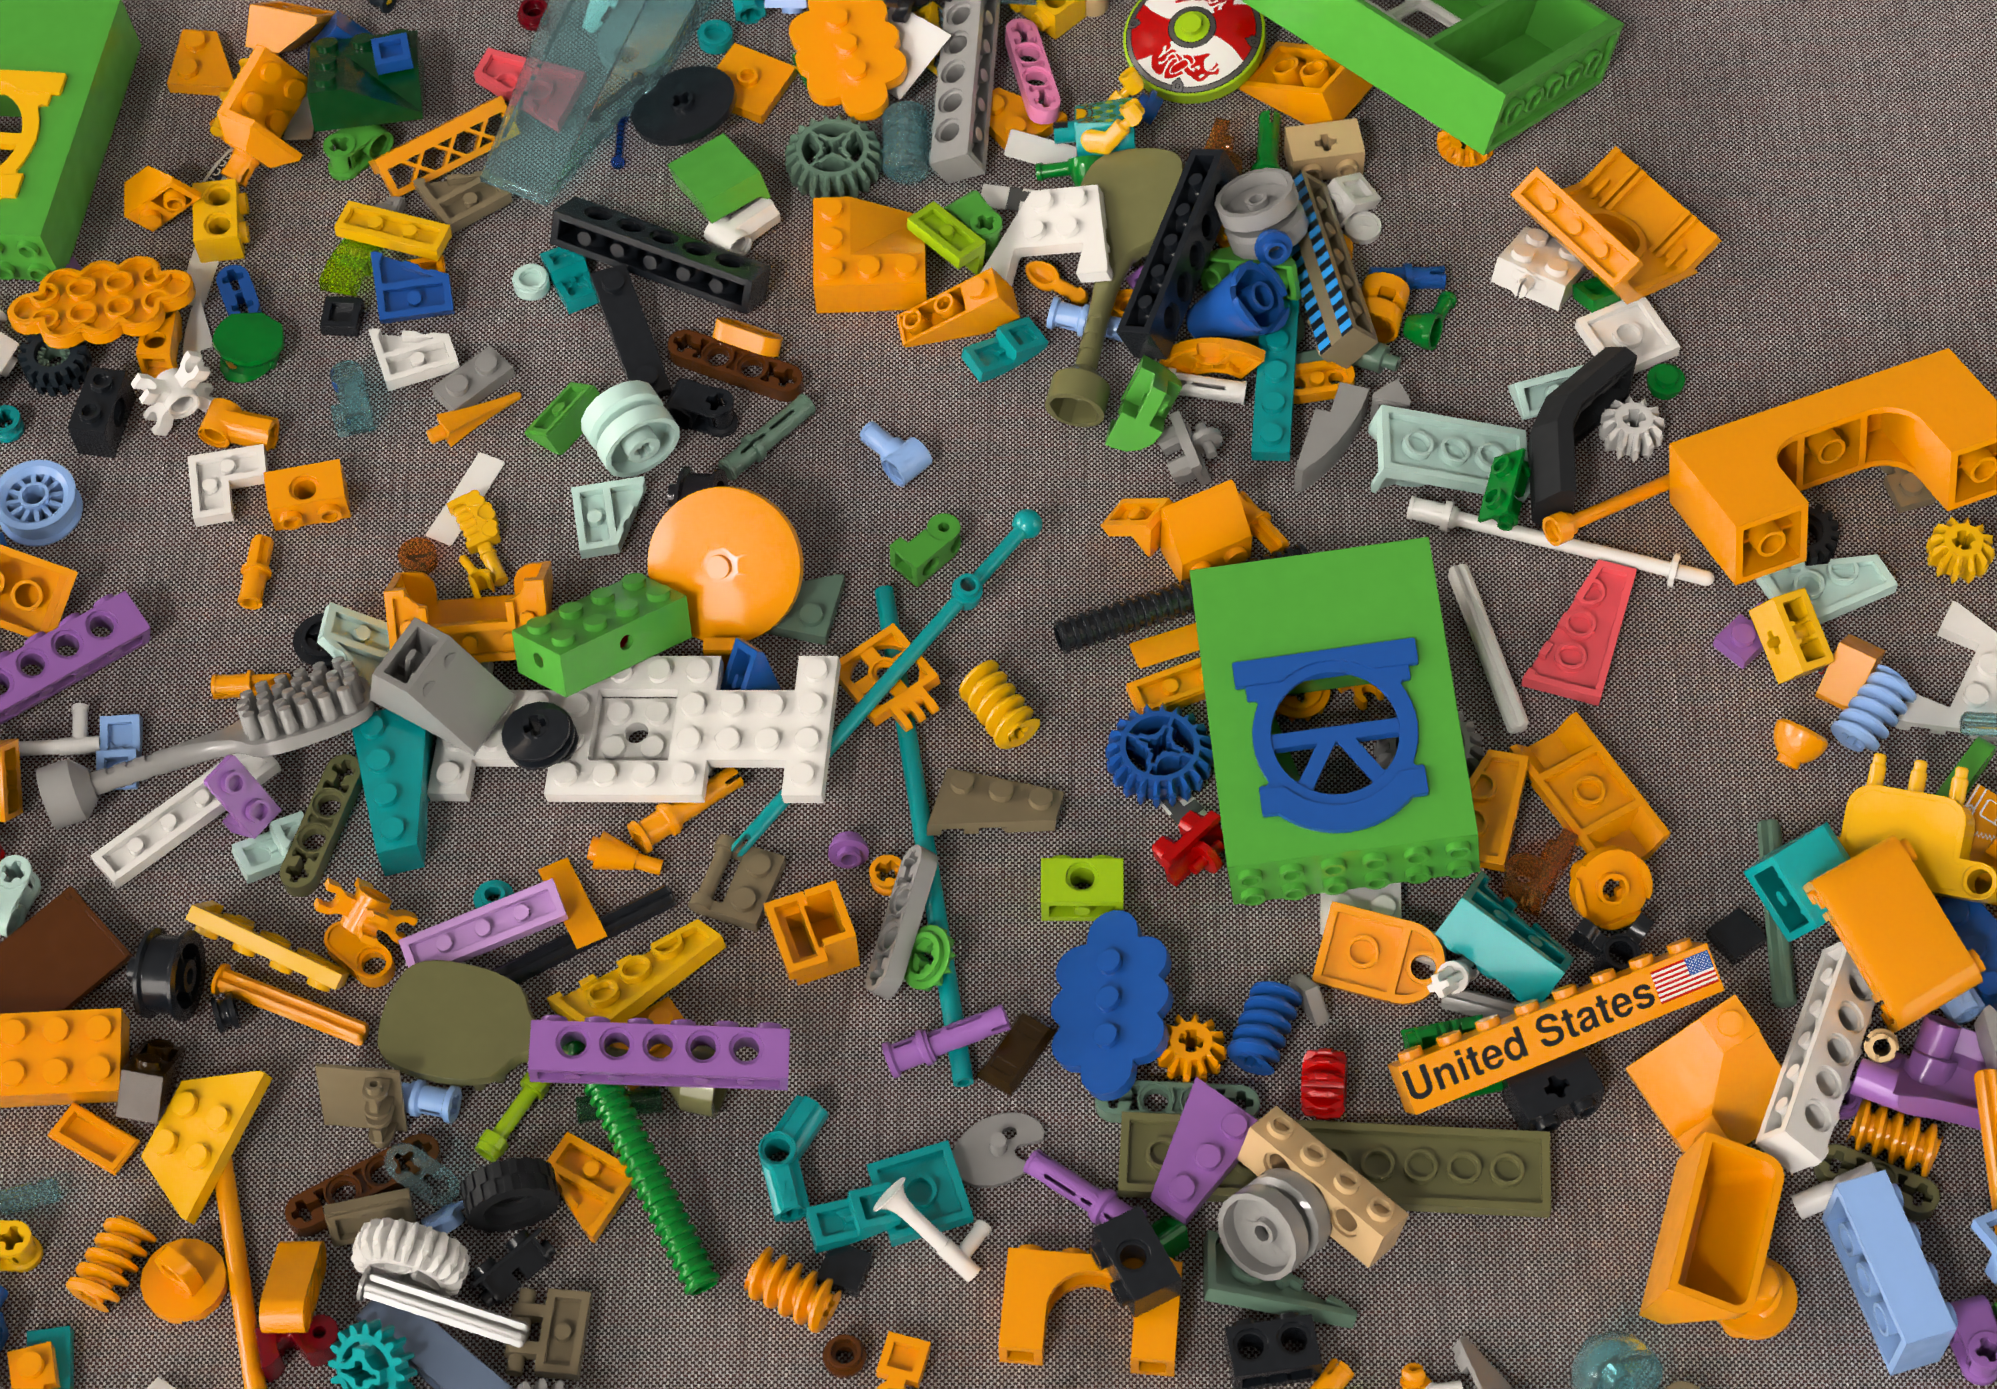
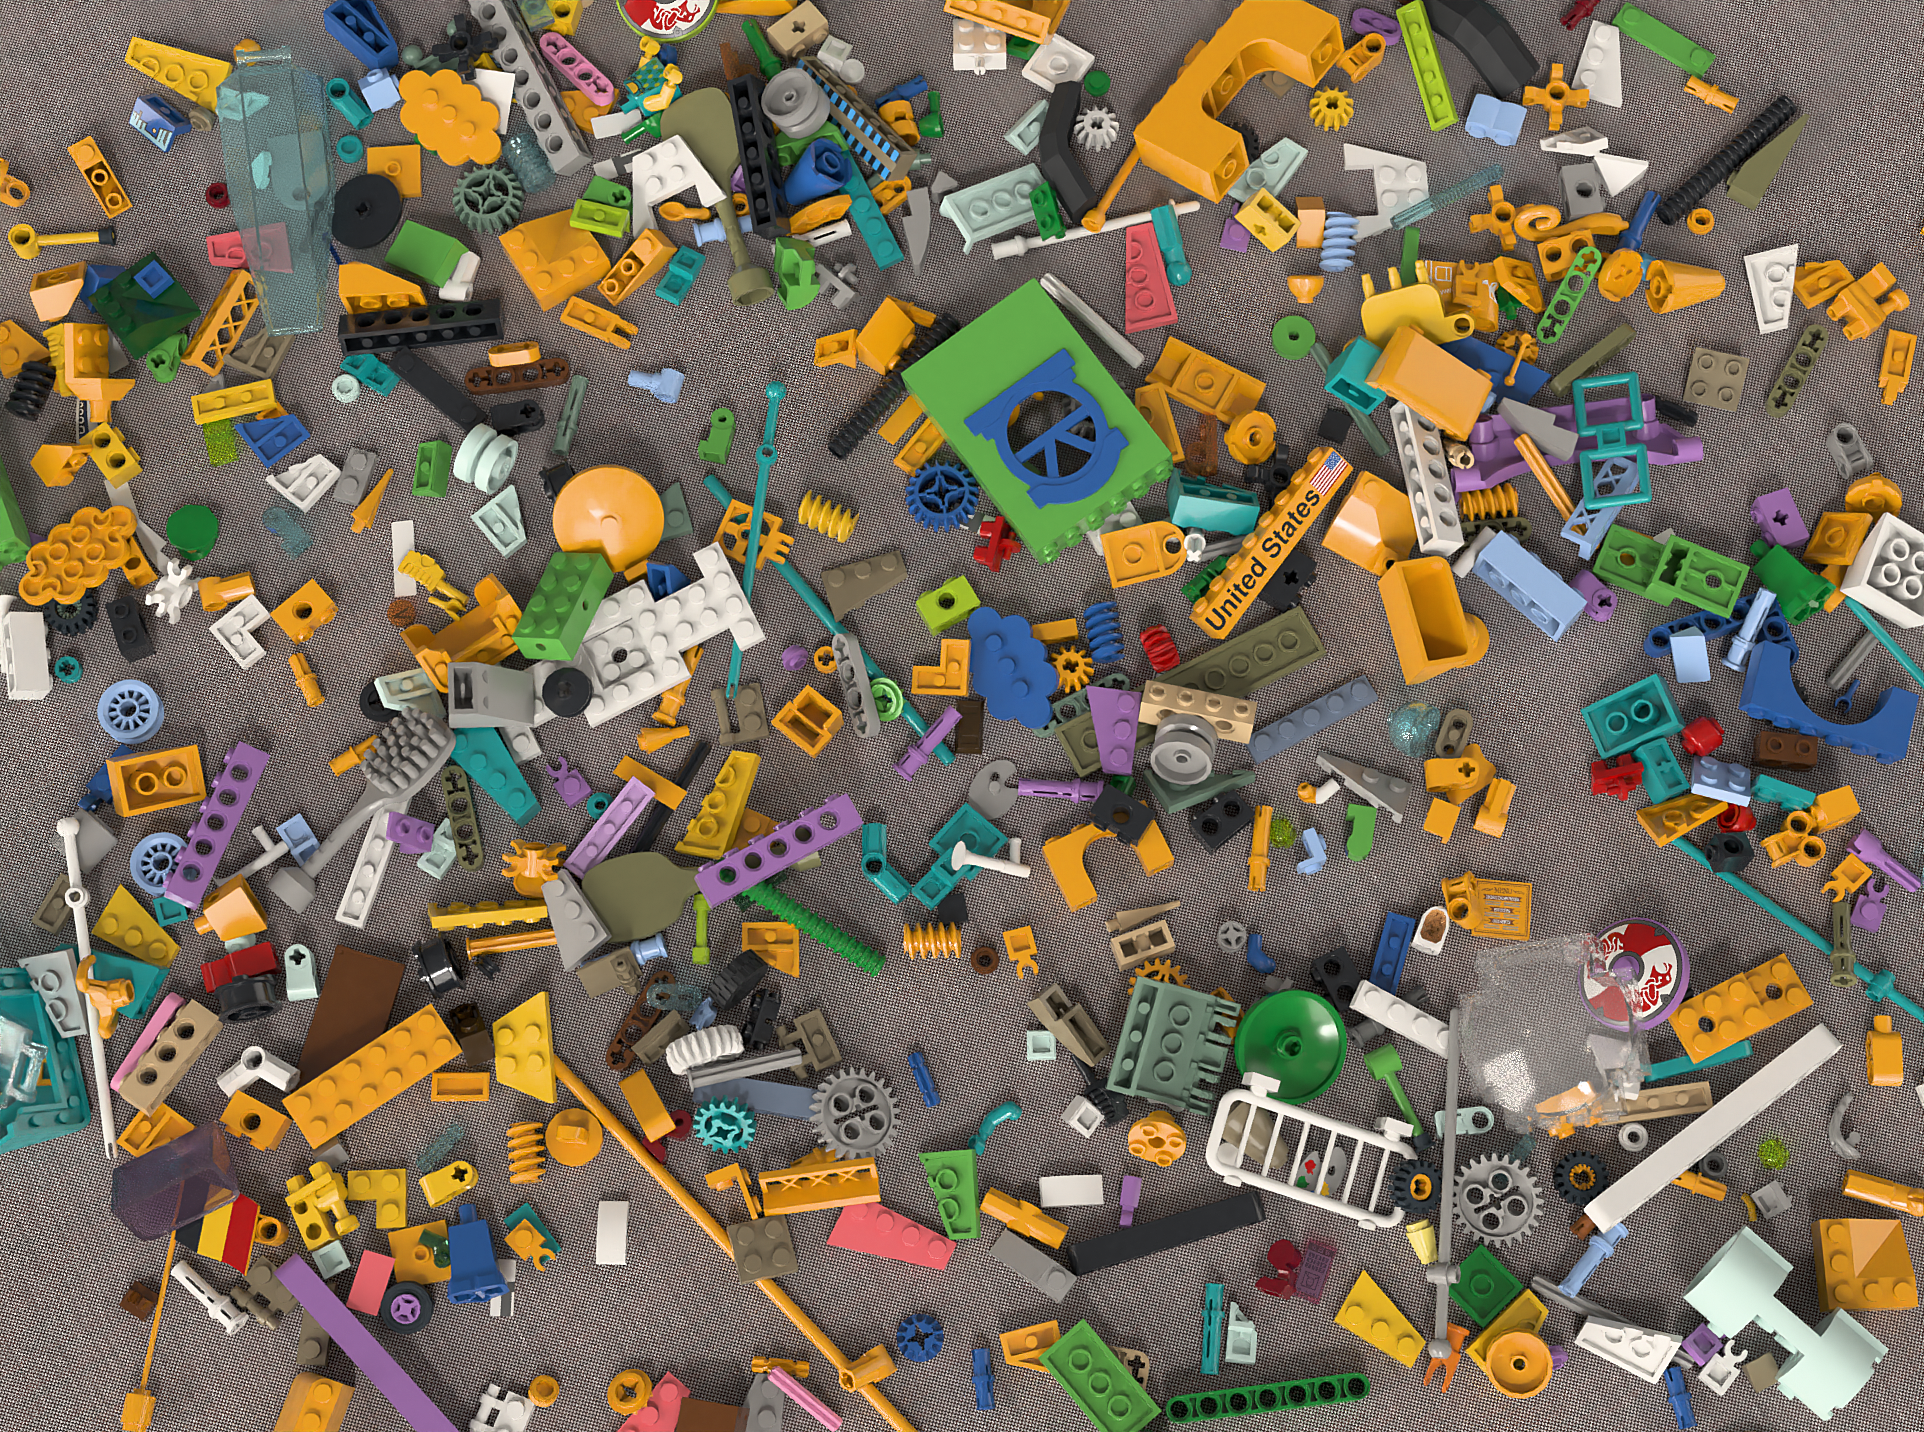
camera: 30 degrees left, 15 degrees up
(180, 109) = (28, 390): none -> black piece
(245, 294) = (164, 496): blue beam -> none
(342, 316) = (238, 477): black tile -> none
(363, 1009) = (574, 920): none -> light grey wing
(477, 855) = (570, 785): none -> medium lavender plate
(627, 182) = (371, 290): none -> light orange slope
(869, 351) = (597, 322): none -> light orange hinge
(1030, 975) = (950, 677): none -> light orange plate
(1201, 994) = (1056, 631): none -> light orange piece
(1269, 239) = (818, 124): blue plate -> none
(1313, 1001) = (1124, 603): light grey tile -> none
(1478, 1289) = (1311, 719): none -> sand blue plate
(1646, 602) = (1171, 242): none -> teal piece
(1748, 784) = (1293, 326): none -> bright green piece

